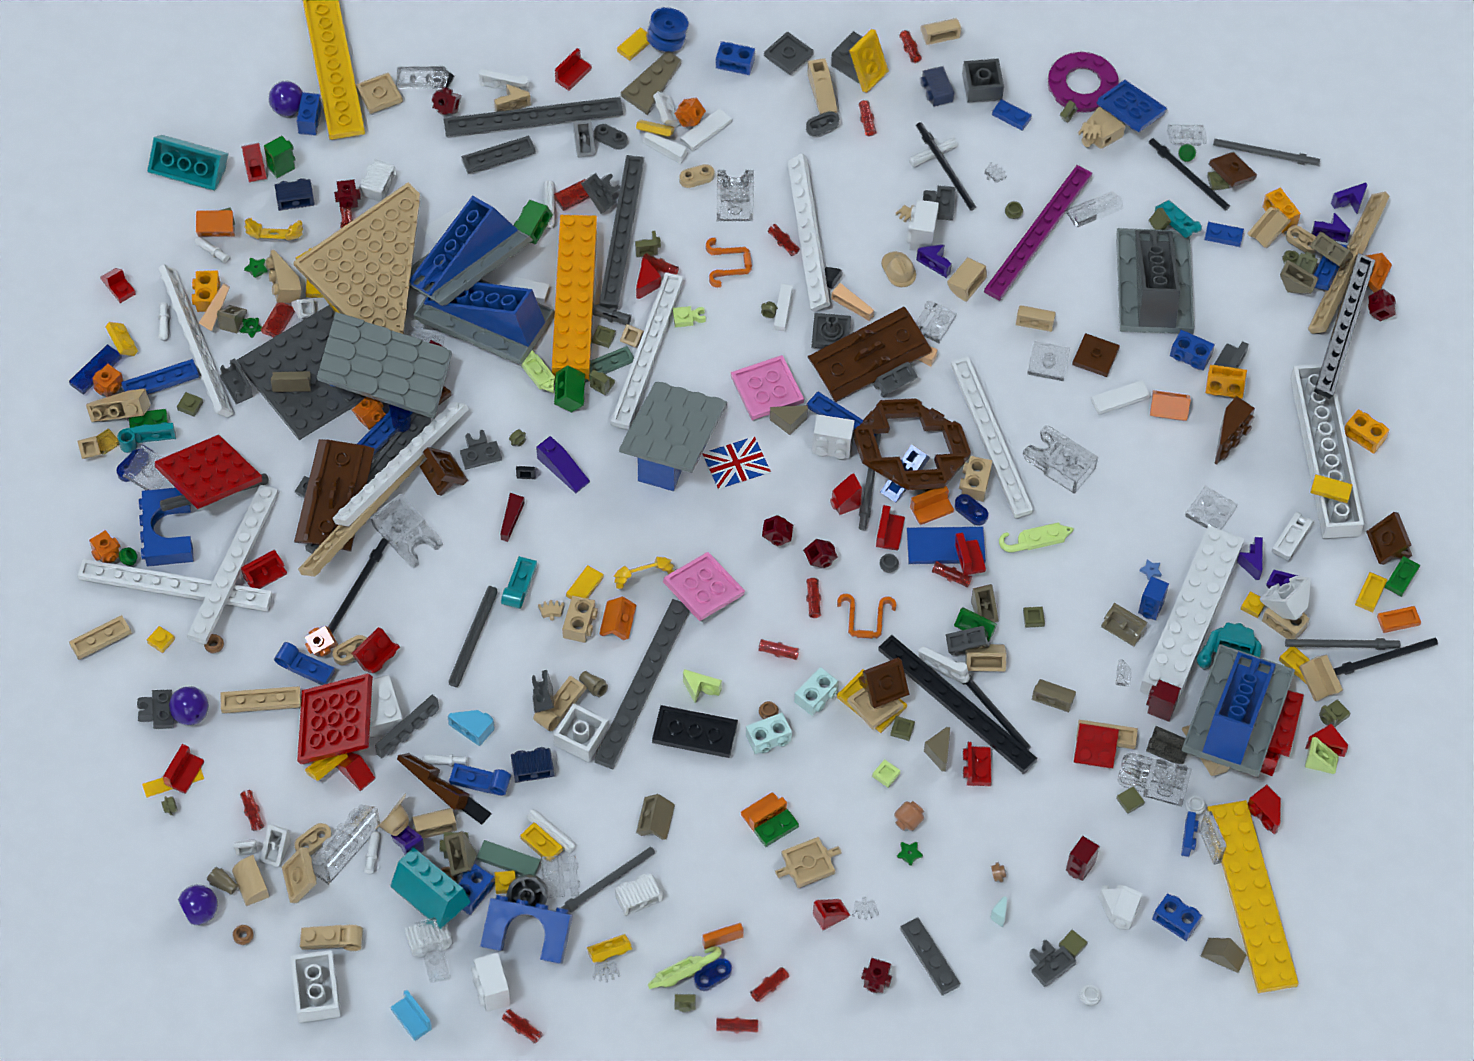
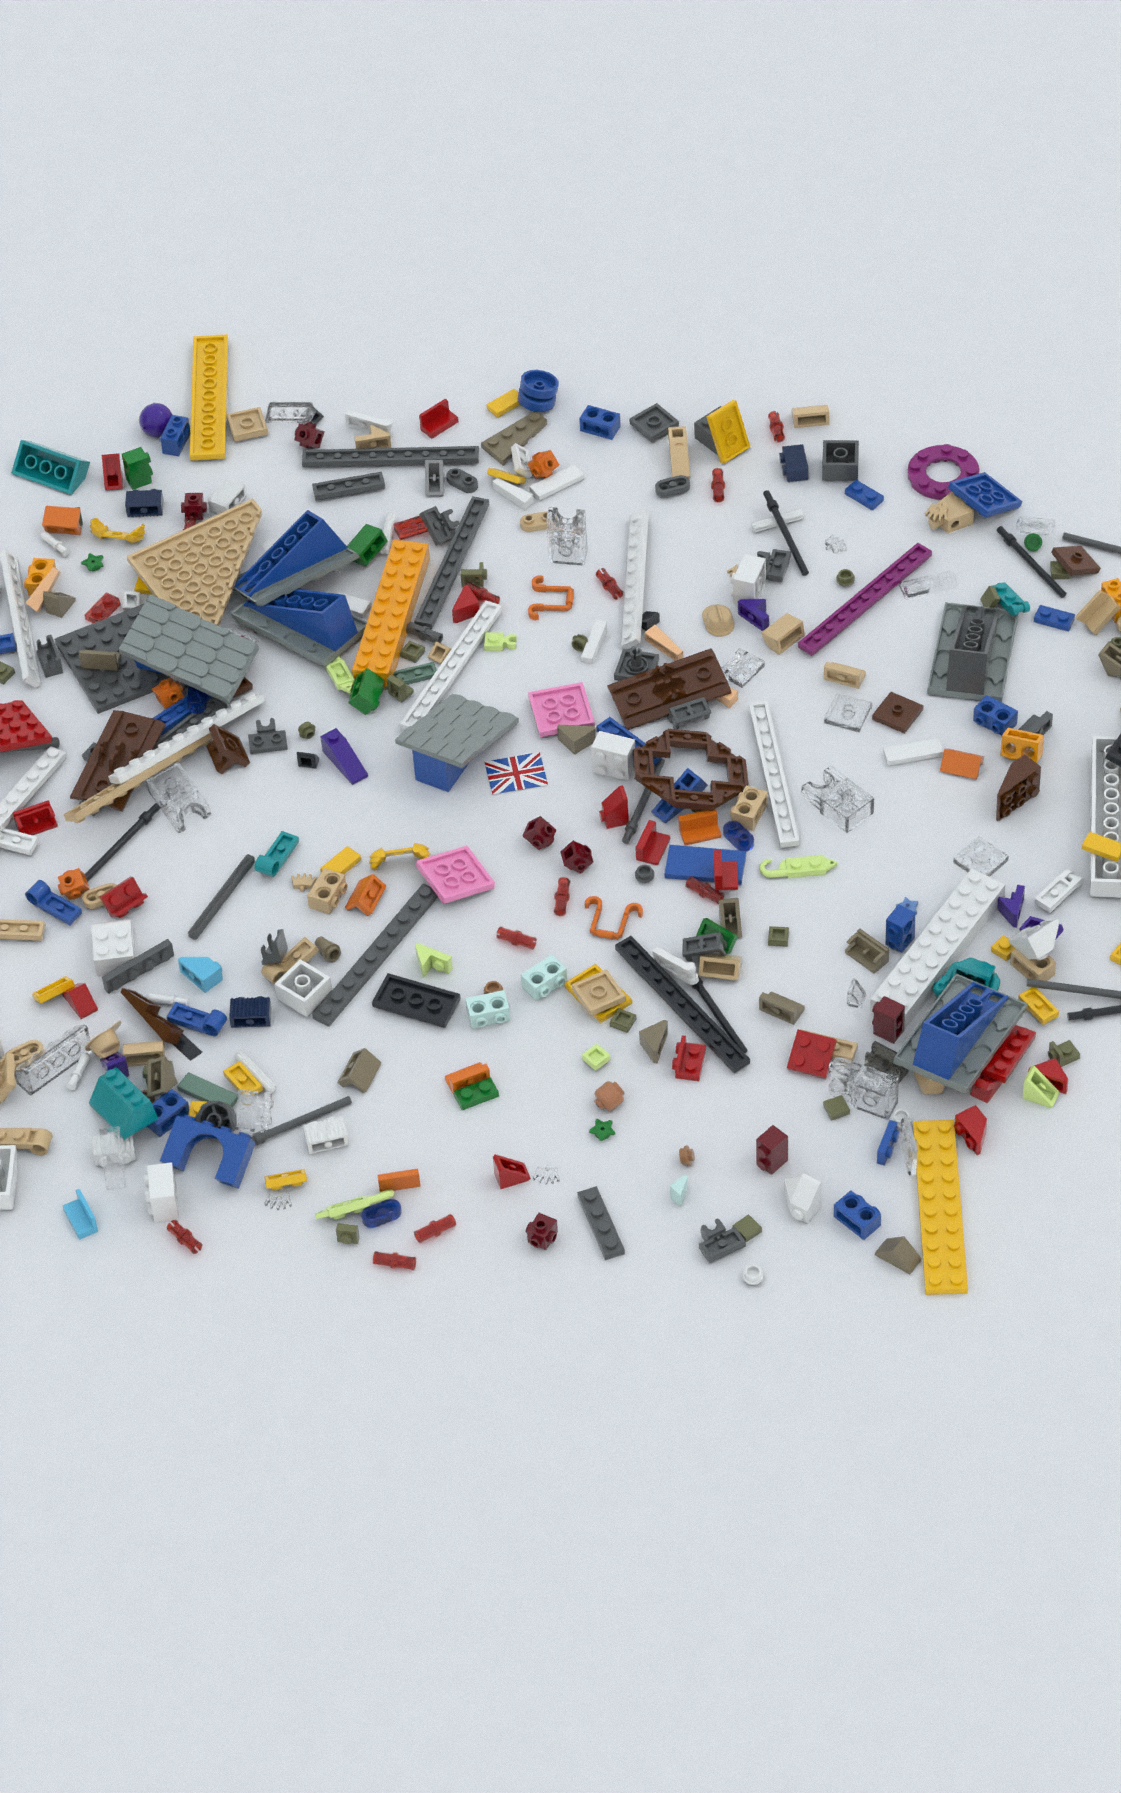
camera: 15 degrees right, 10 degrees down
(251, 322) = (75, 612): green plate -> none
(285, 281) = (114, 573): tan slope -> none
(335, 719) = (68, 949): red plate -> none
(512, 513) = (284, 796): dark red piece -> none
(808, 862) = (499, 1126): tan plate -> none
(885, 682) = (609, 970): reddish brown bracket -> none
(1068, 112) = (920, 495): olive tile -> none
(1320, 677) = (1054, 1017): tan panel -> none

